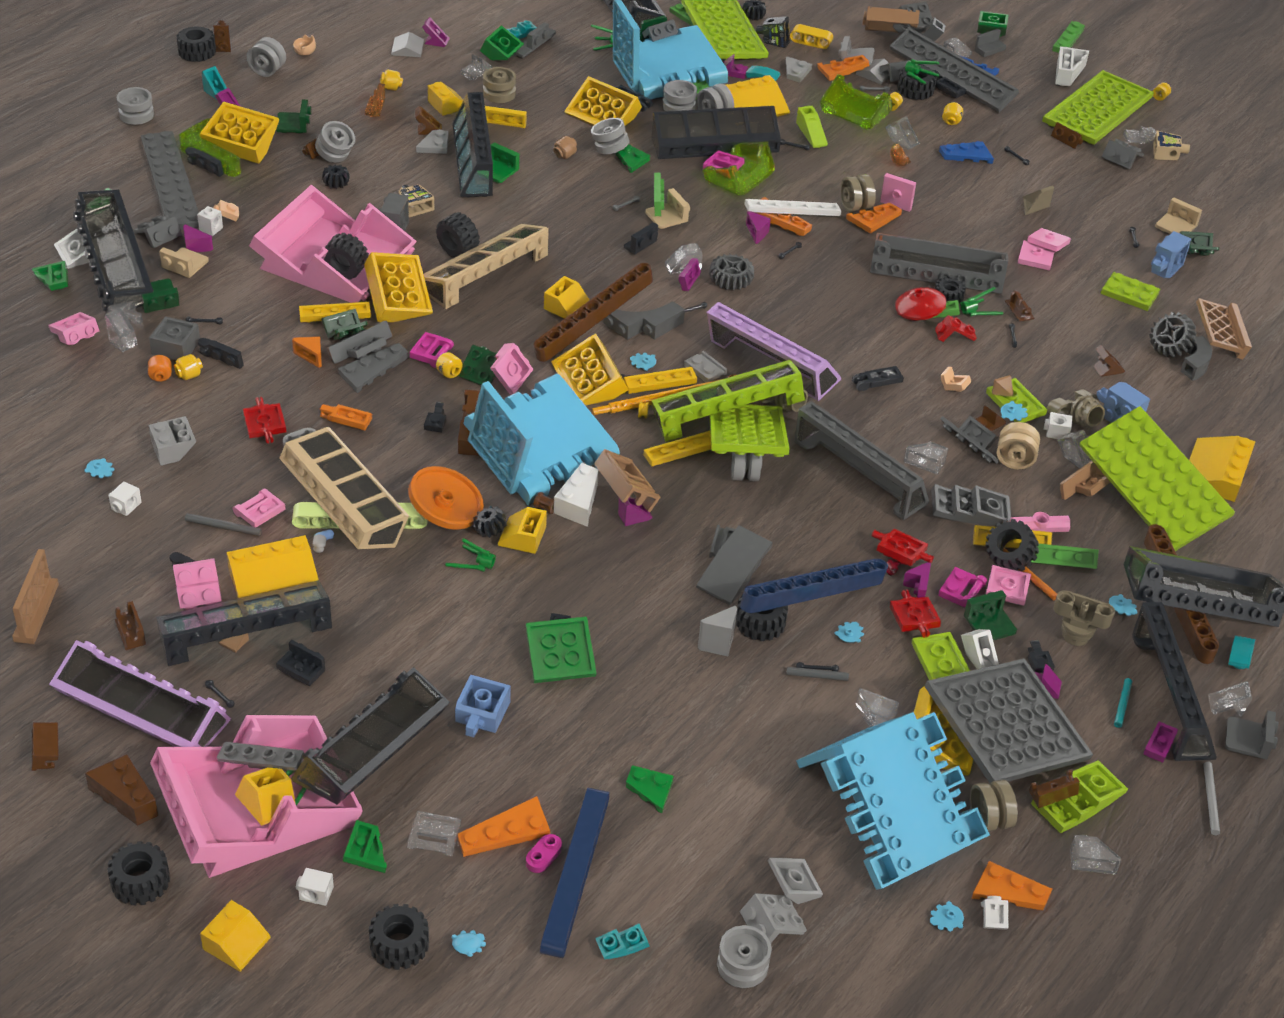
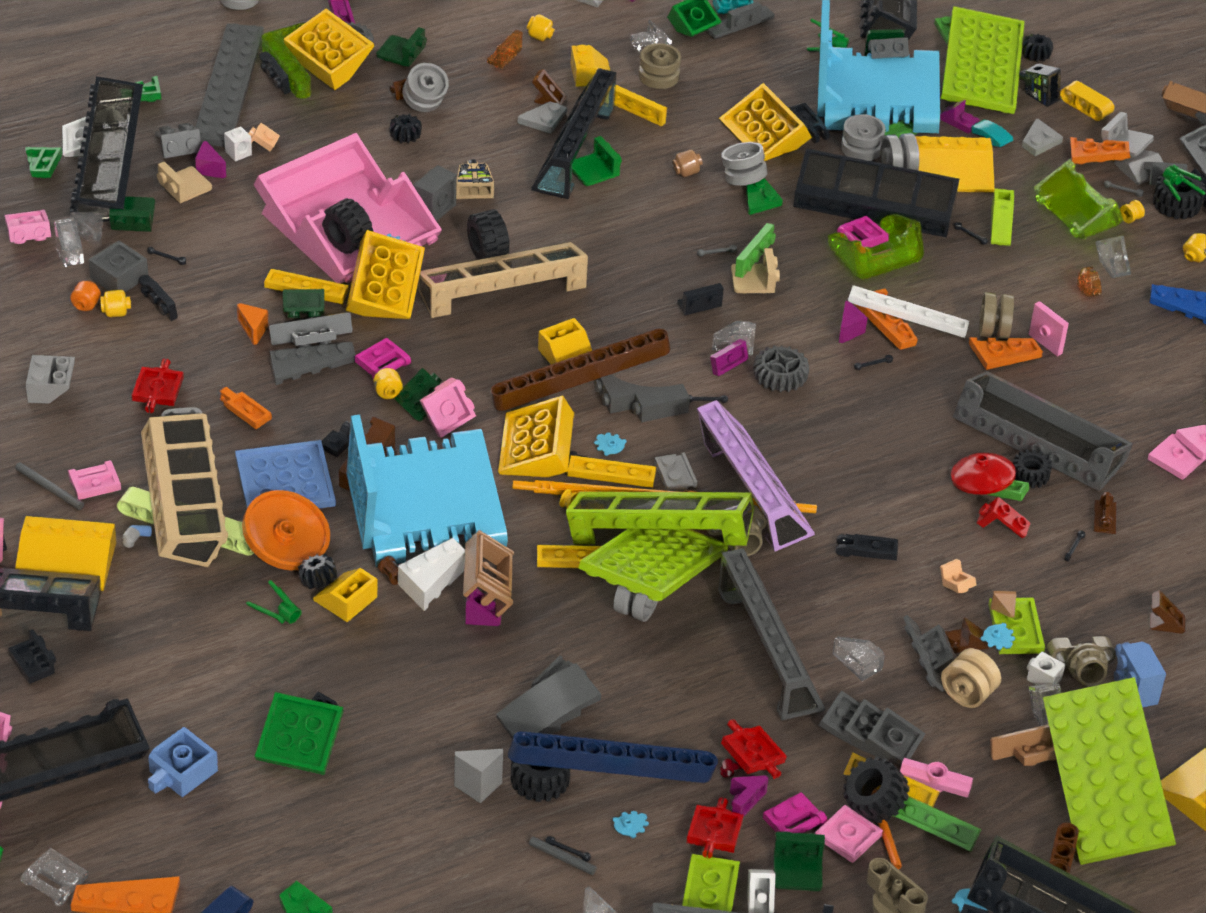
camera: 25 degrees right, 0 degrees up
(409, 452) = (286, 467): none -> medium blue plate
(971, 305) = (1044, 493): green plant -> none

